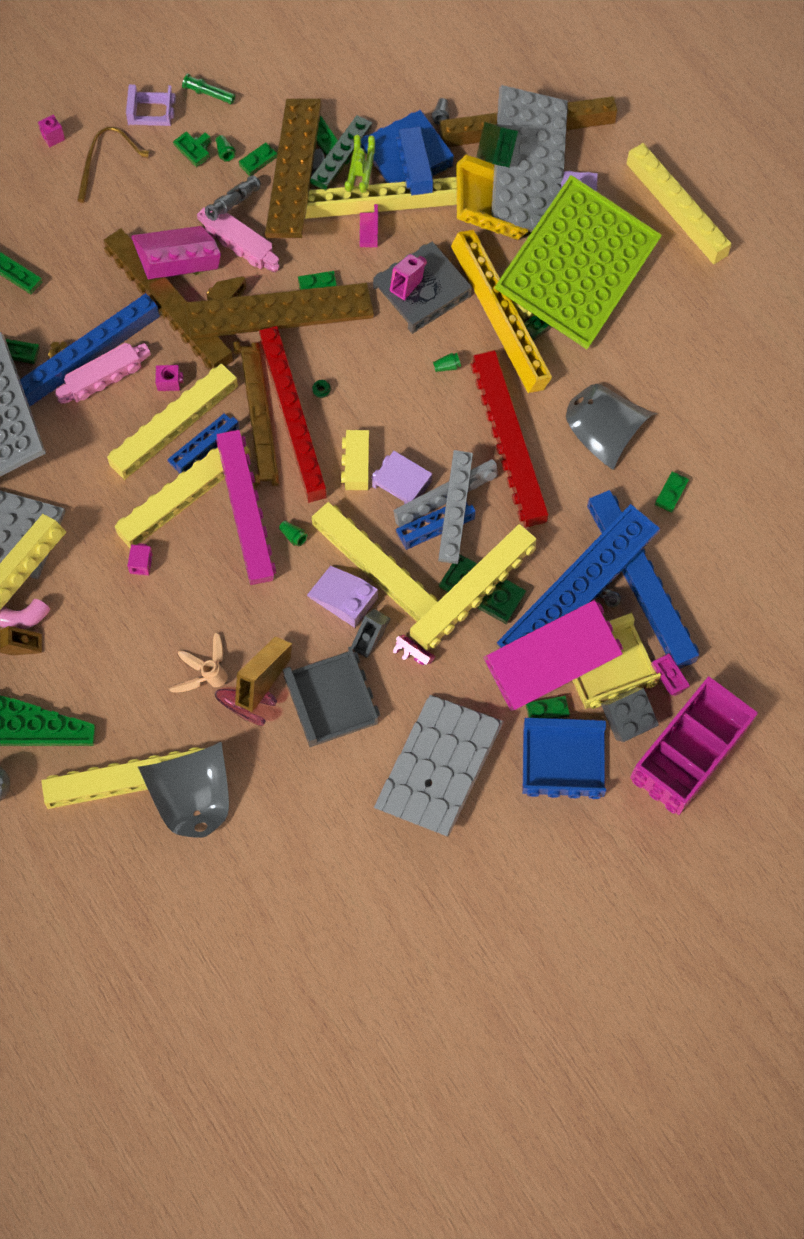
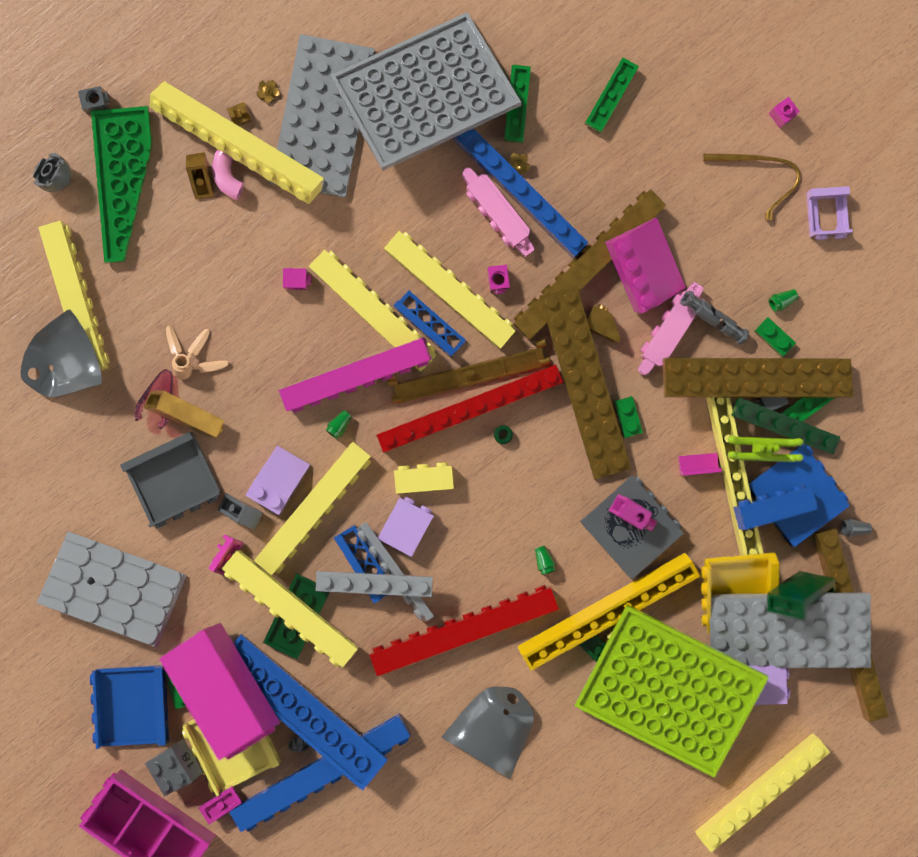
camera: 85 degrees right, 20 degrees up
(193, 148) = (780, 266): green hinge -> none
(201, 86) = (859, 264): green pin -> none
(671, 492) = (421, 797): green plate -> none

